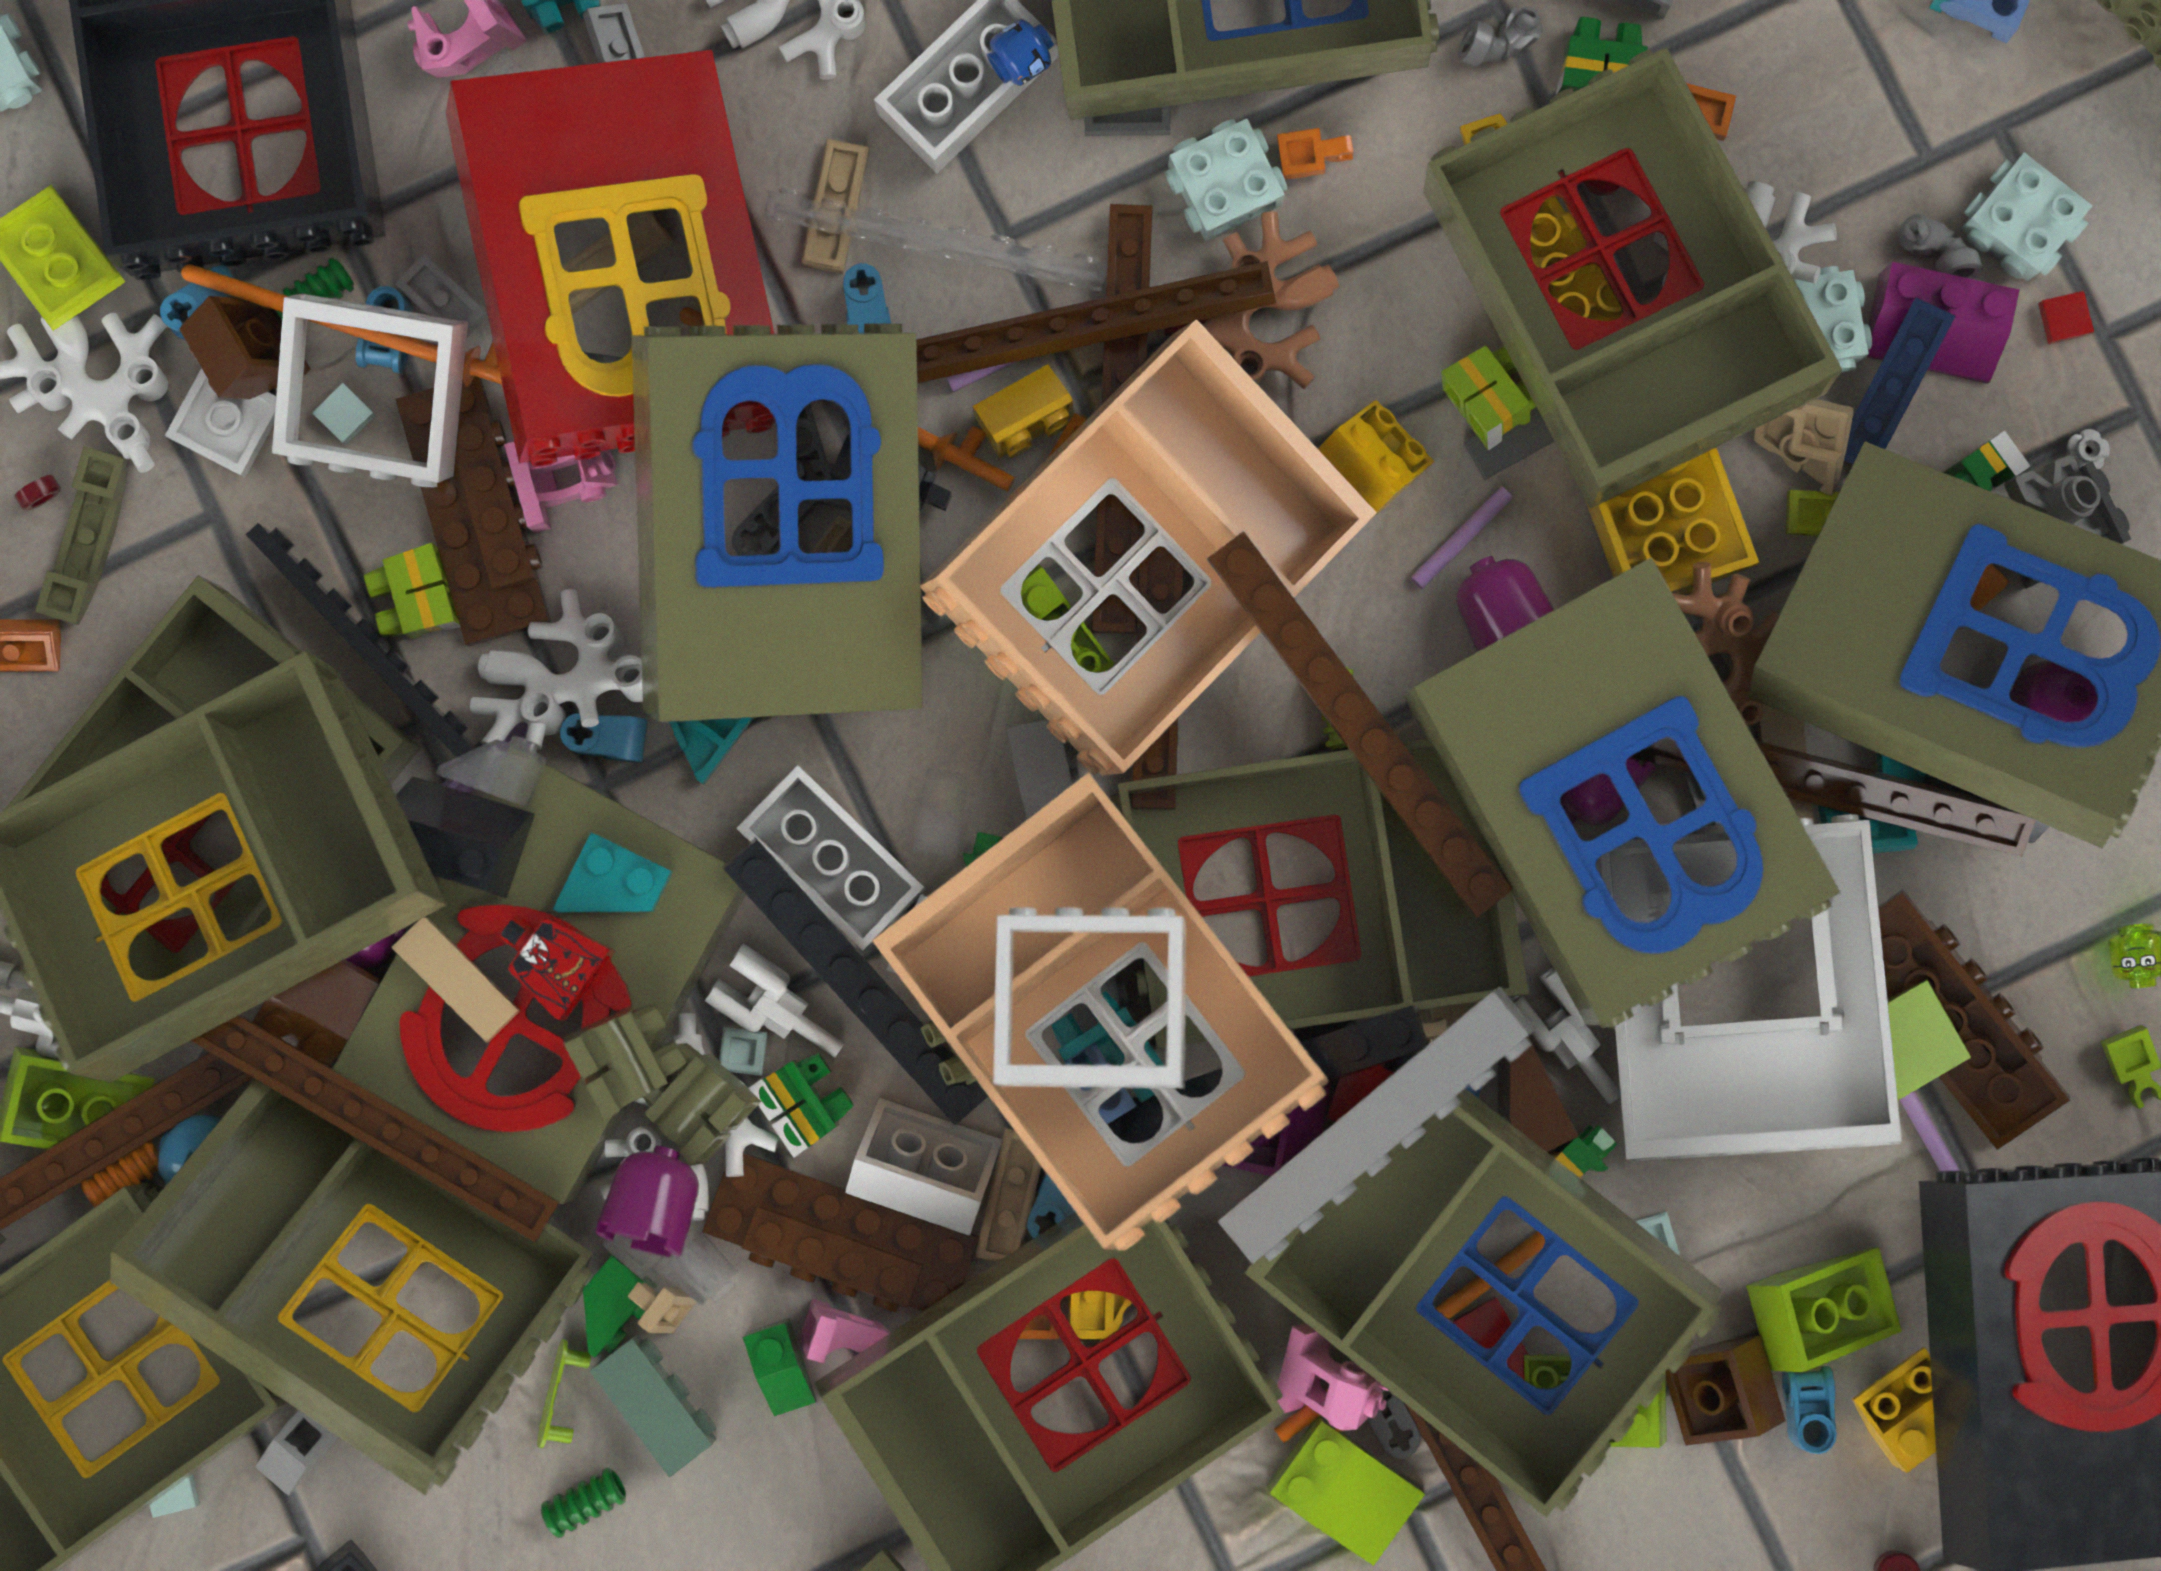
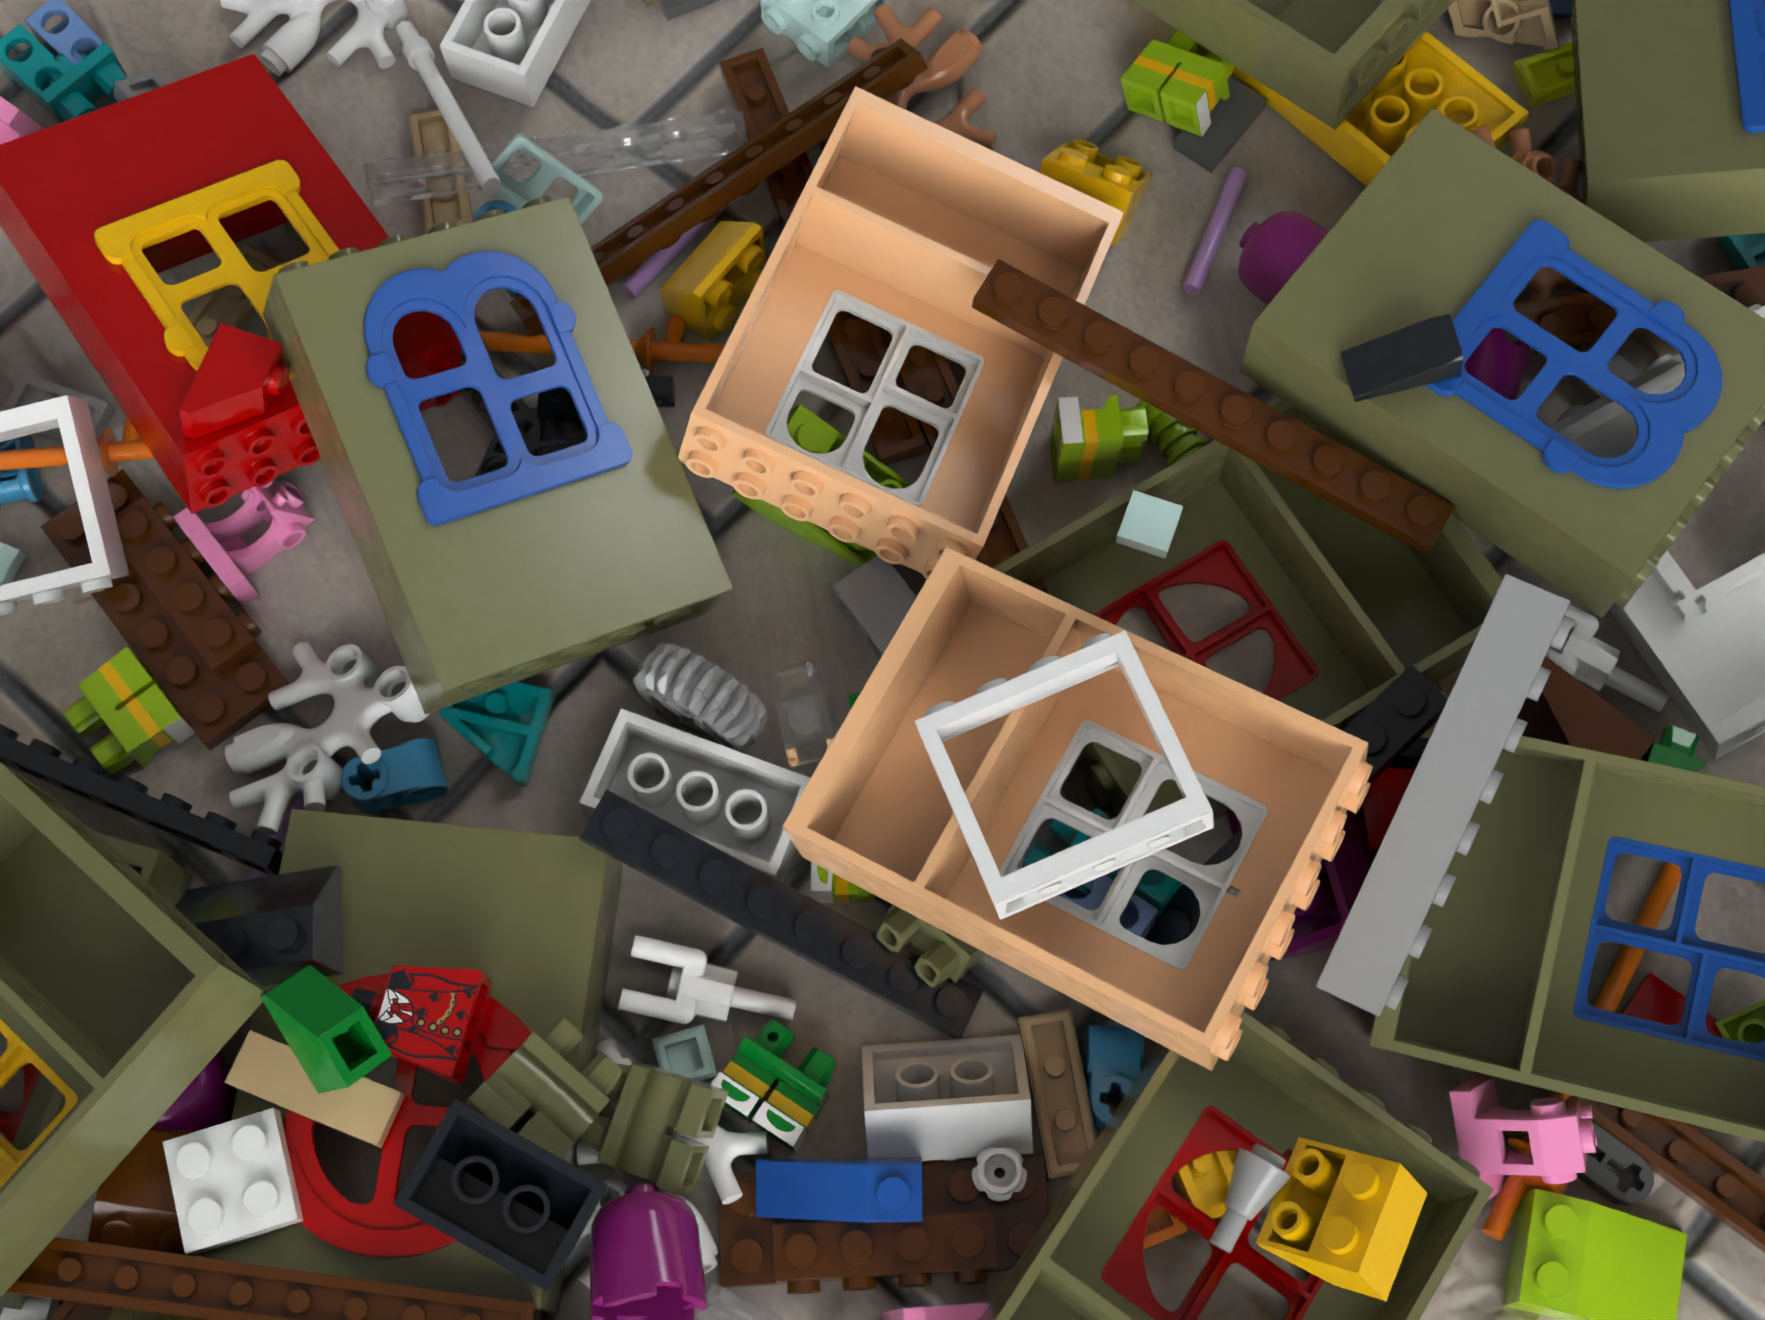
camera: 20 degrees left, 15 degrees down
(373, 1022) = (232, 1181): none -> white plate
(478, 949) = (325, 1029): none -> green slope
(499, 769) = (279, 834): clear slope -> none
(561, 1123) = (501, 1195): none -> black slope
(588, 393) = (233, 381): none -> red slope
(612, 880) = (457, 904): teal wing -> none
(817, 1206) = (840, 1189): none -> blue slope
(857, 88) = (421, 58): none -> white bar
(863, 779) = (700, 697): none -> light grey gear
(898, 268) = (550, 168): none -> light aqua piece
(934, 1252) = (999, 1188): none -> white plate
(1105, 1342) = (1252, 1185): none -> light grey cone
(1158, 1391) = (1343, 1217): none -> yellow slope
(1267, 800) = (1149, 524): none -> light aqua tile
(1268, 694) = (1095, 440): none -> lime hips
(1509, 775) = (1404, 359): none -> black slope

